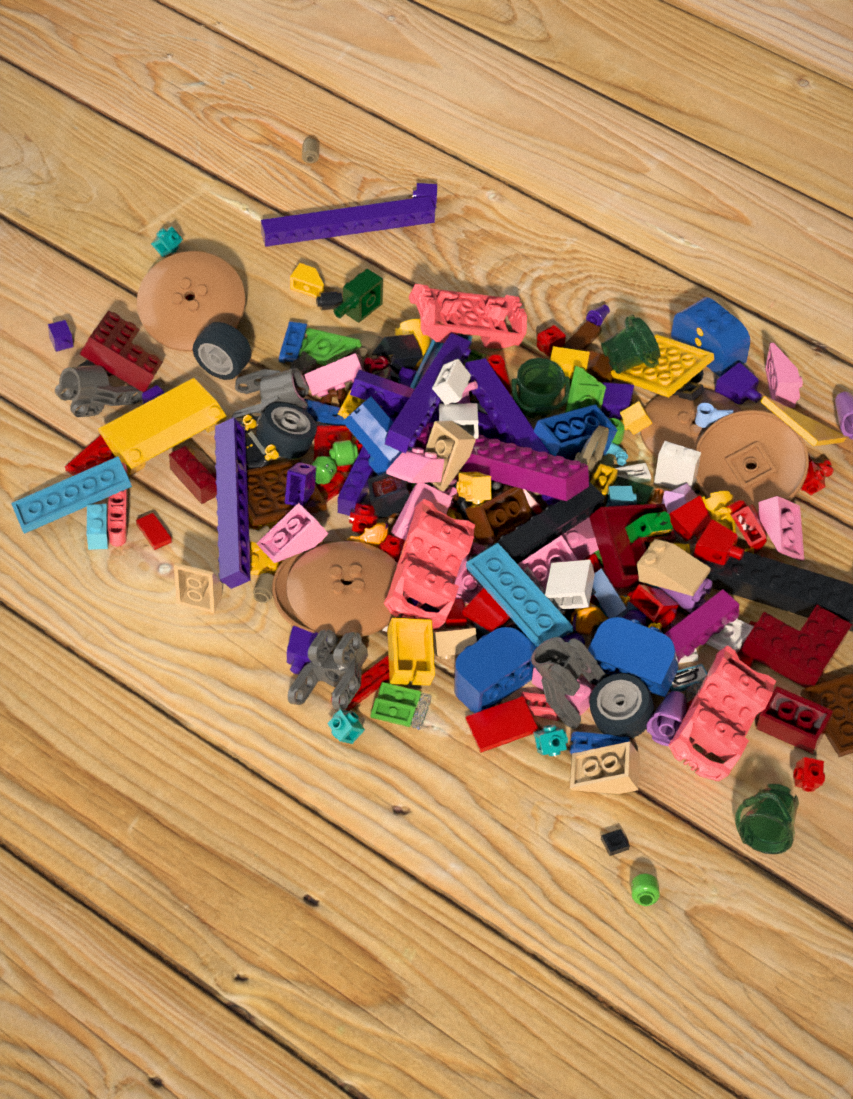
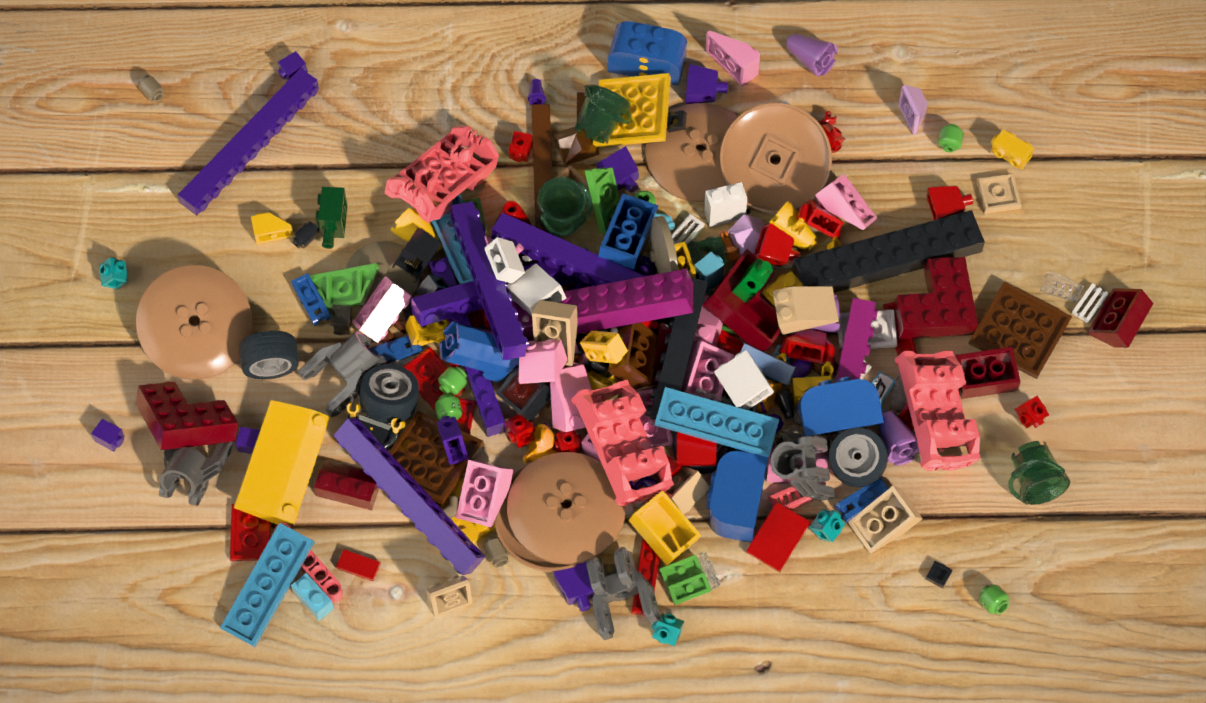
camera: 35 degrees left, 15 degrees up
(375, 364) = (409, 277): dark red bush -> none
(569, 358) = (566, 164): yellow brick -> none
(635, 418) = (650, 177): yellow brick -> none
(708, 414) = (713, 133): light blue pin -> none
(718, 544) = (818, 258): red torso -> none
(809, 429) = (798, 95): yellow tile -> none

